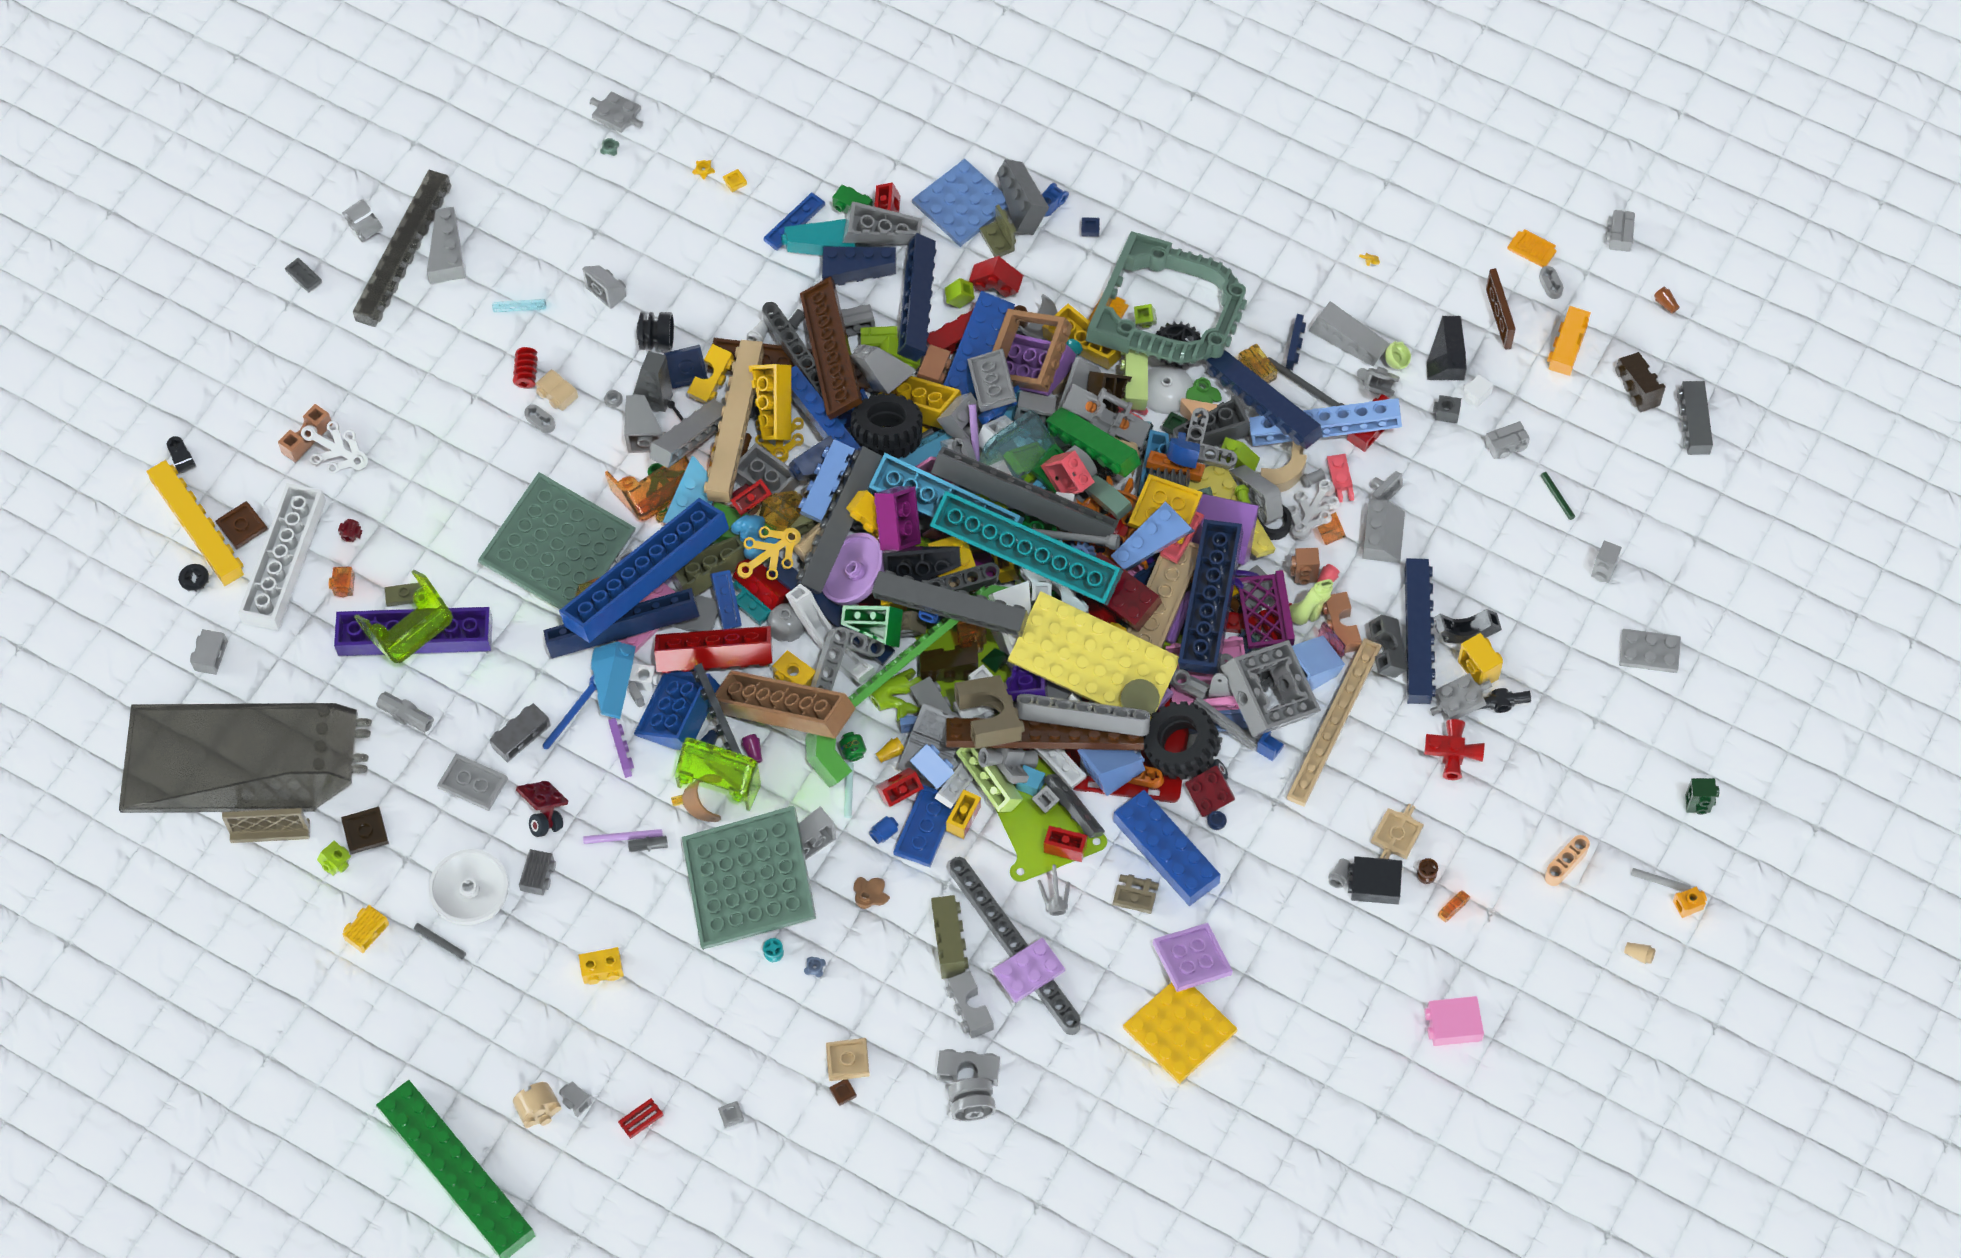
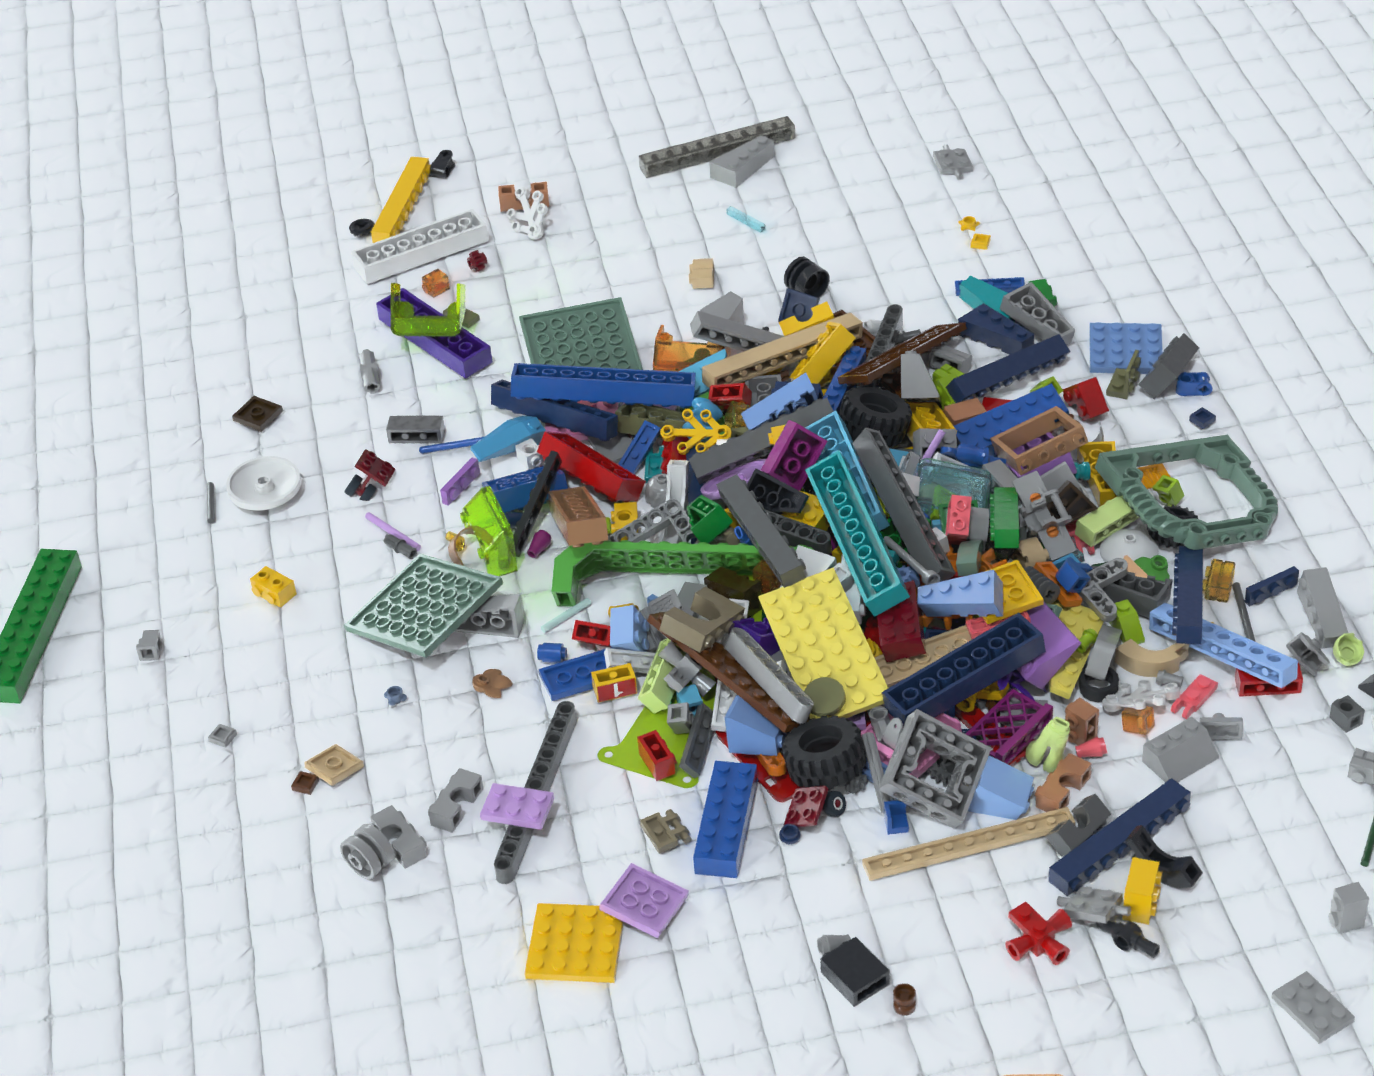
camera: 50 degrees right, 20 degrees down
(208, 651) = (313, 265): light grey brick -> none
(239, 756) = (249, 326): clear smoke windscreen -> none
(241, 525) = (423, 215): reddish brown plate -> none
(267, 825) = (208, 366): dark tan fence -> none
(303, 275) = (641, 126): dark grey plate -> none
(334, 858) = (217, 411): lime brick -> none
(362, 220) = (712, 117): light grey brick -> none
(365, 928) = (180, 462): yellow brick -> none
(472, 782) = (351, 434): light grey plate -> none
(525, 367) = (700, 248): red piece -> none
(536, 1105) = (121, 625): tan brick -> none
(537, 421) = (675, 283): light grey beam -> none
(537, 872) = (313, 508): flat silver brick -> none
(604, 285) = (811, 237): light grey slope -> none
(609, 142) = (922, 175): sand green plate -> none
(636, 694) = (512, 460): light grey tile -> none
(650, 1102) = (169, 690): red tile -> none
(655, 381) = (759, 296): dark grey wedge -> none
(772, 945) = (383, 664): teal wheel -> none
(852, 746) = (601, 590): green head -> none
(887, 197) = (1070, 308): red brick -> none
(898, 684) = (665, 575): lime piece -> none
(948, 936) = (499, 746): olive wedge -> none
(991, 380) = (983, 435): light grey tile -> none
(1057, 905) = (601, 790): light grey plant -> none
(1333, 639) = (1034, 787): clear pink piece -> none
(1397, 833) = (916, 955): tan plate -> none
(1453, 906) = (893, 1041): clear orange beam -> none

